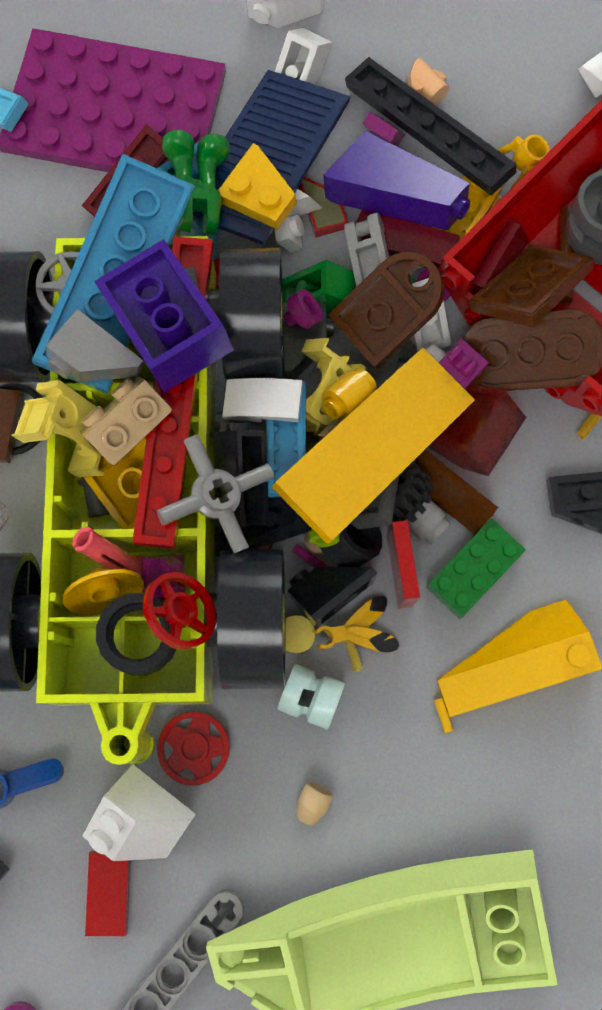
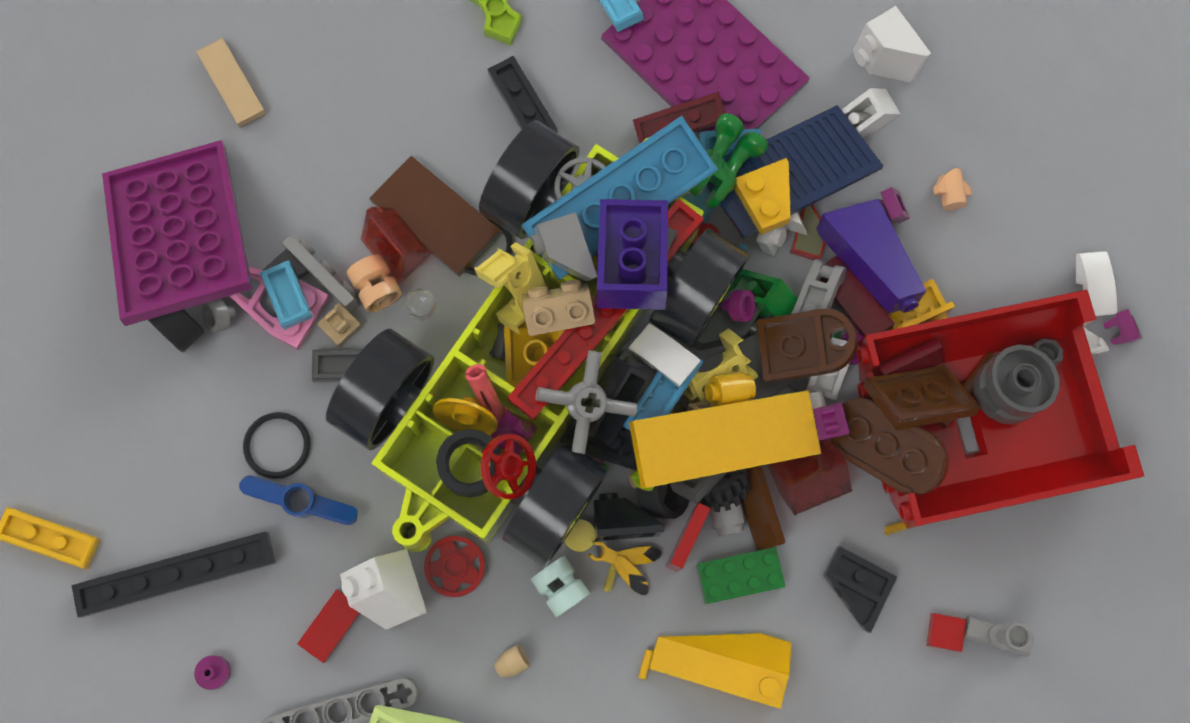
camera: 25 degrees right, 0 degrees up
(313, 558) = (629, 492): dark pink leg -> none
(431, 126) = (930, 227): black plate -> none
(526, 152) = (984, 298): yellow plant -> none

